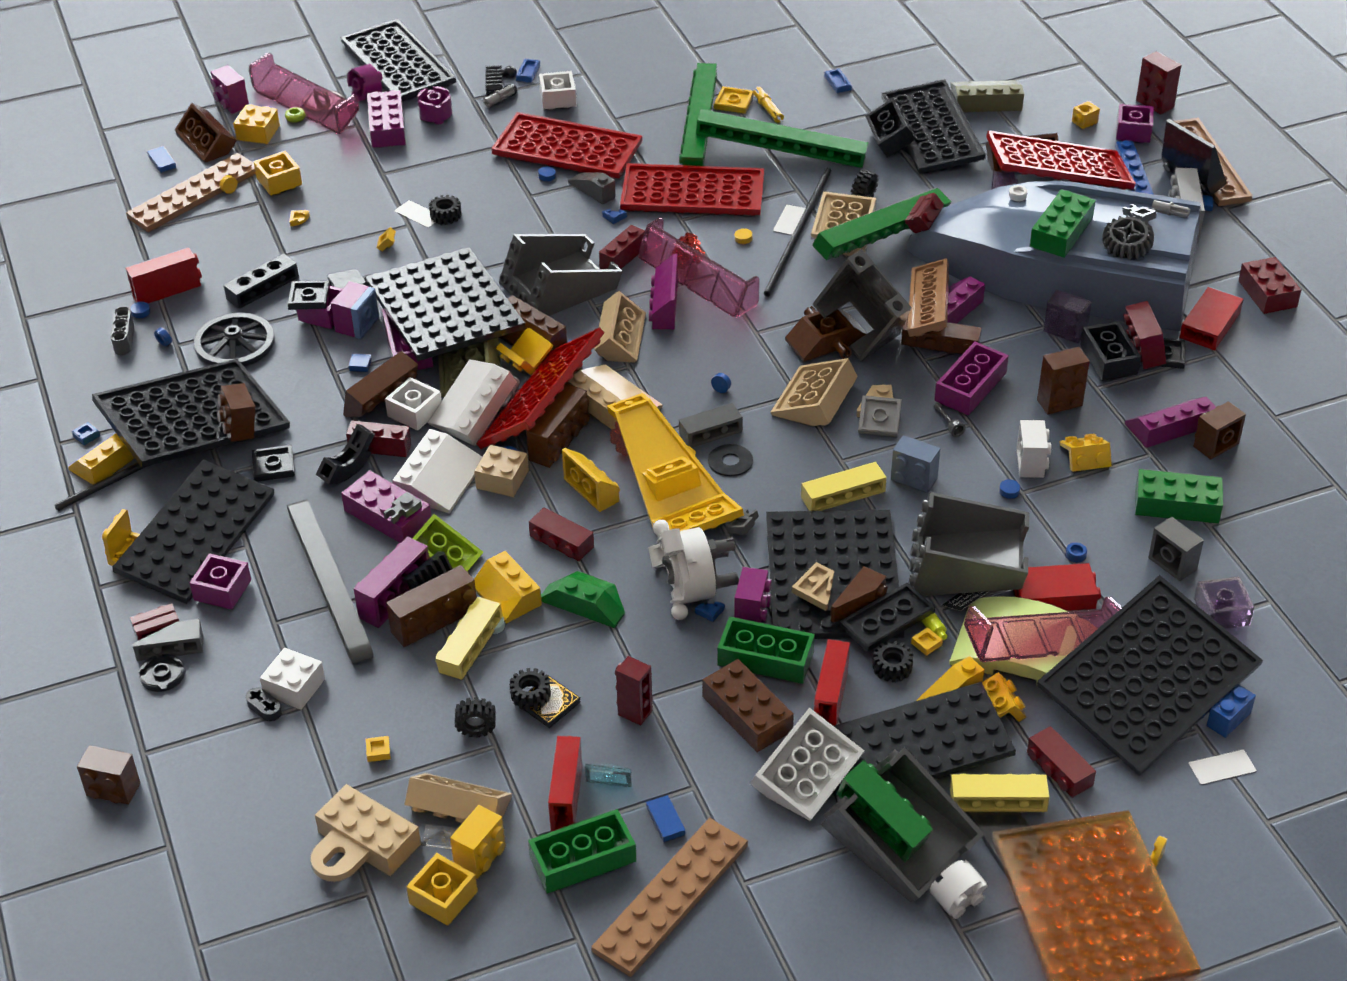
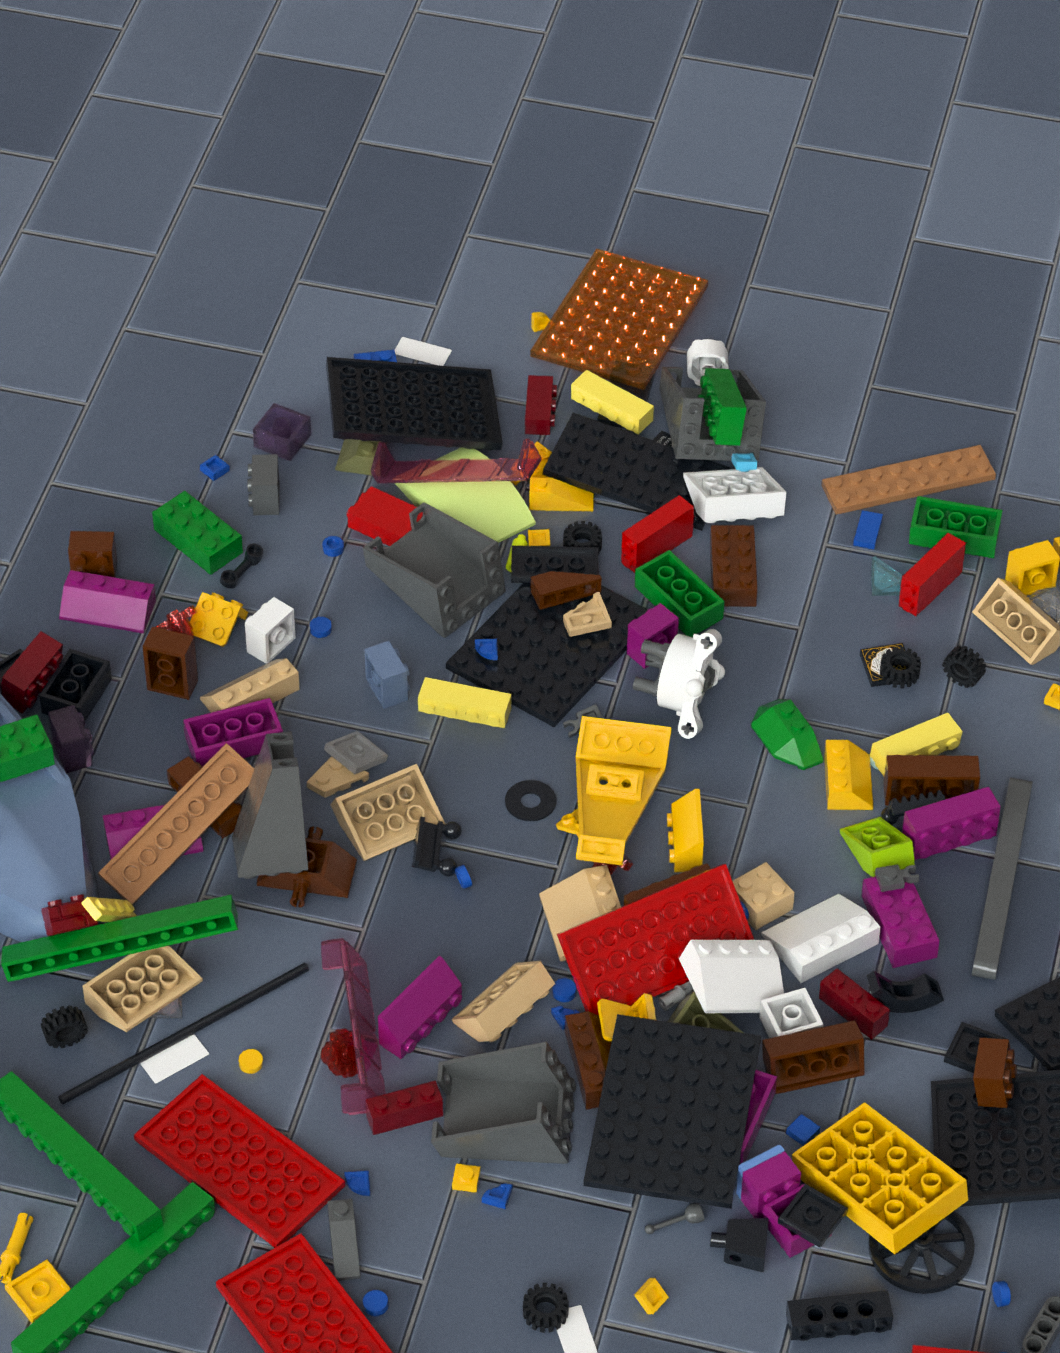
camera: 145 degrees left, 5 degrees up
(281, 339) = (881, 1177): none -> yellow brick
(561, 534) = (758, 800): dark red brick -> none
(591, 361) = (564, 990): none -> blue tile
(634, 690) = (823, 601): dark red brick -> none
(710, 425) = (520, 834): dark grey brick -> none
(764, 385) = (428, 846): none -> black gear
(824, 797) = (744, 462): none -> medium azure plate
(867, 527) = (487, 648): none -> blue tile
(906, 229) = (108, 909): none -> light yellow plate
(953, 424) = (299, 707): dark grey hinge -> none
(1001, 417) = (270, 681): none -> tan slope
(1102, 423) = (179, 621): none -> clear red plant
(1114, 483) = (252, 557): none -> black bar
(1240, 561) = (214, 467): none -> blue tile

